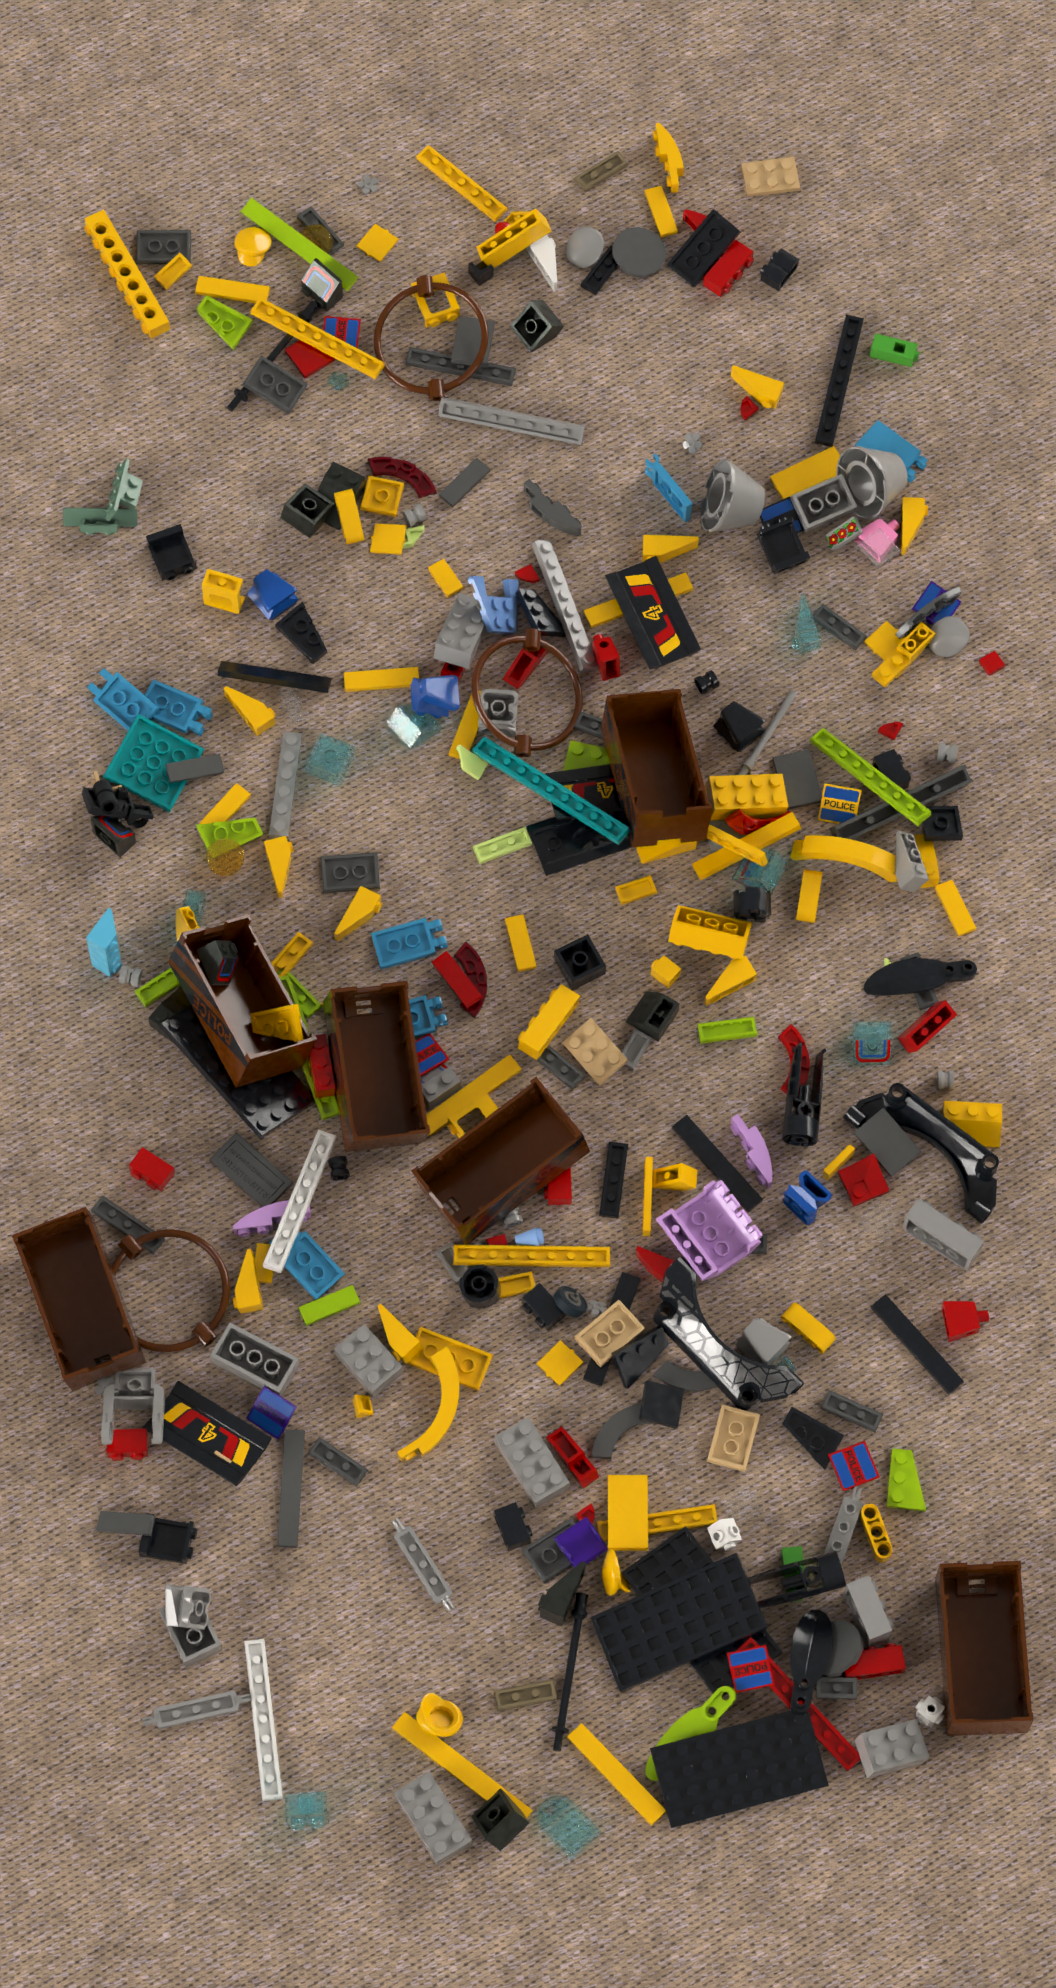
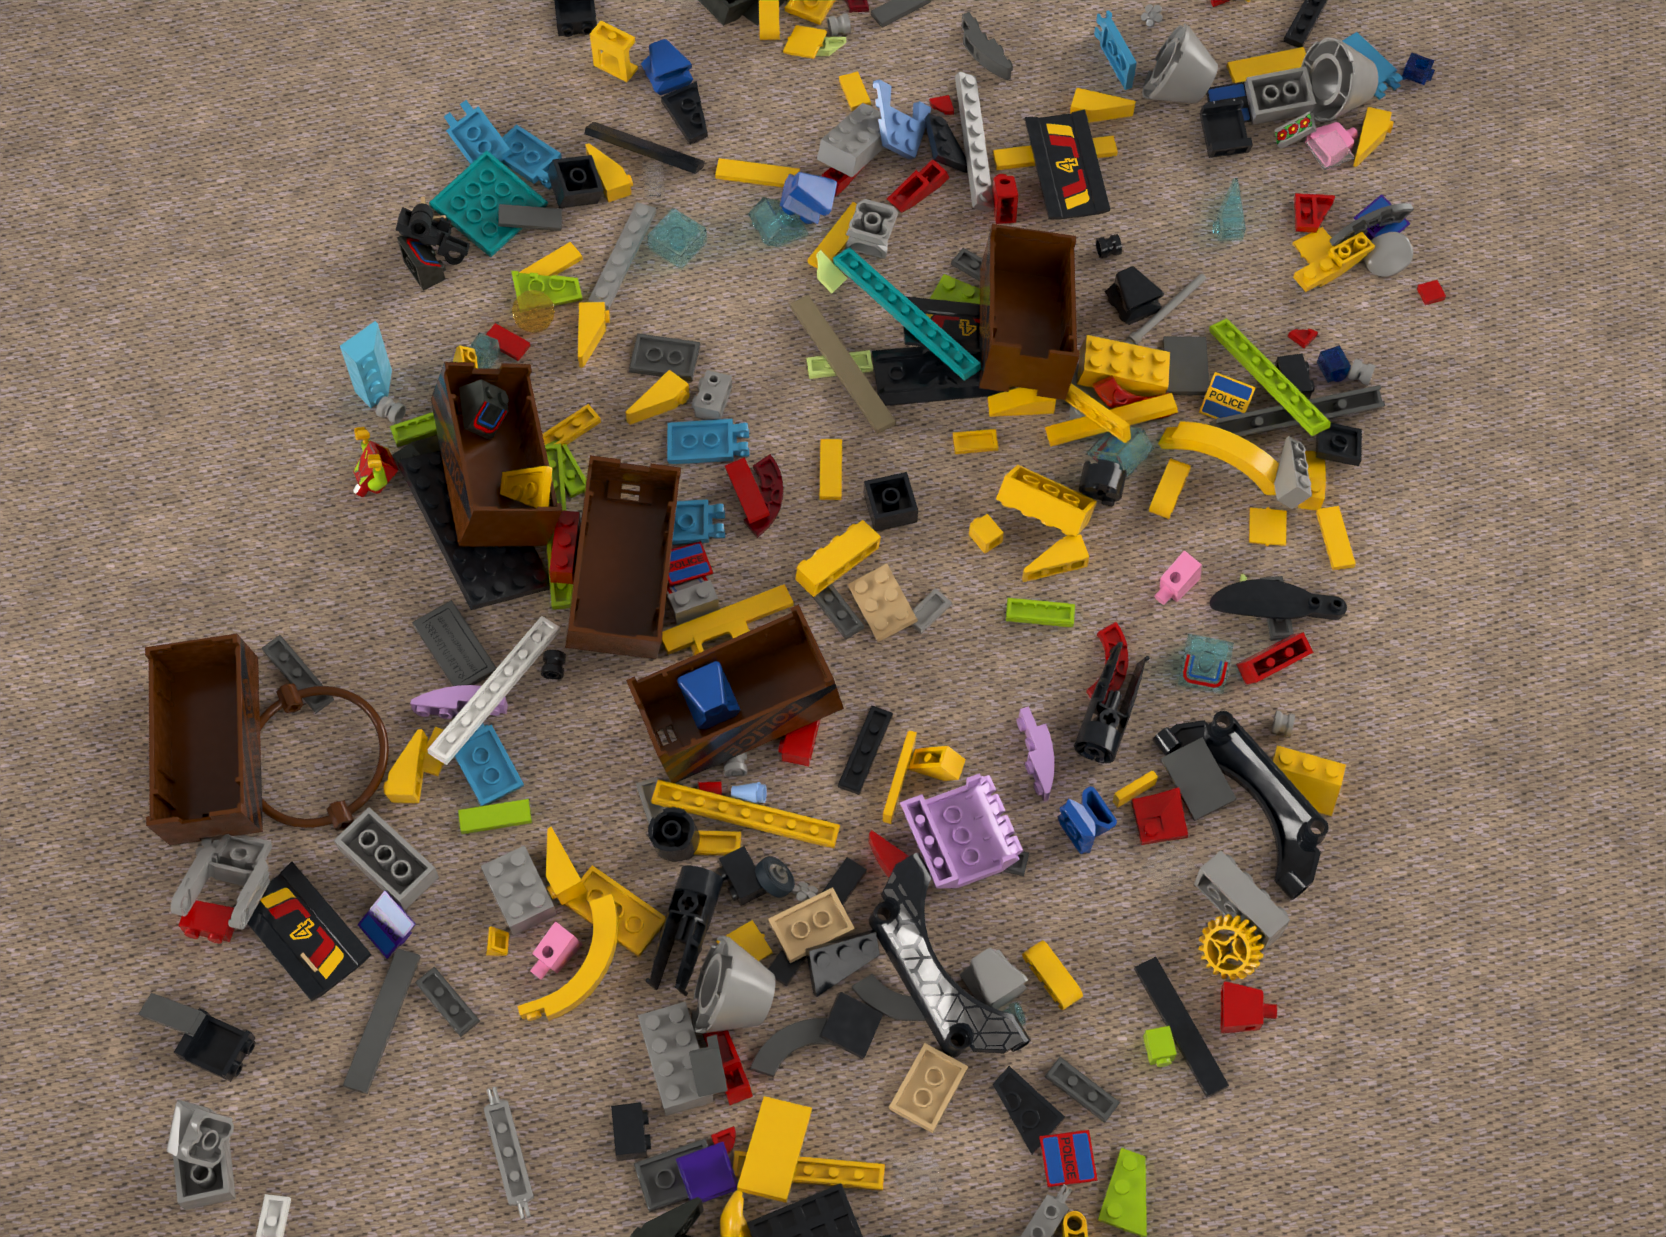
camera: 15 degrees right, 5 degrees down
(136, 1030) = (374, 467): none -> torso
(151, 1169) = (342, 618): red brick -> none
(214, 890) = (509, 343): none -> red tile
(226, 726) = (575, 181): none -> black brick
(403, 900) = (712, 395): none -> light grey brick
(414, 1393) = (558, 942): none -> bright pink torso
(478, 1166) = (708, 695): none -> blue piece
(505, 845) = (843, 364): none -> dark tan tile
(510, 1325) = (687, 922): none -> black piece
(531, 642) = (926, 164): reddish brown piece -> none
(561, 1398) = (731, 989): none -> light grey cone
(563, 1463) = (708, 1068): none -> dark grey panel
(653, 1014) = (960, 576): pearl dark grey slope -> none
(717, 1163) = (991, 759): black tile -> none
(724, 1534) = (886, 1205): white brick -> none
(837, 969) = (1179, 578): none -> bright pink torso
(839, 627) = (1268, 223): dark grey tile -> none
(873, 608) = (1311, 211): none -> red wing
(897, 910) = (1267, 526): none -> yellow piece
(904, 1363) = (1160, 1046): none -> lime brick
(922, 751) = (1333, 364): none -> clear blue brick
(940, 447) = (1418, 69): none -> clear blue brick
(956, 1276) = (1248, 955): none -> yellow gear

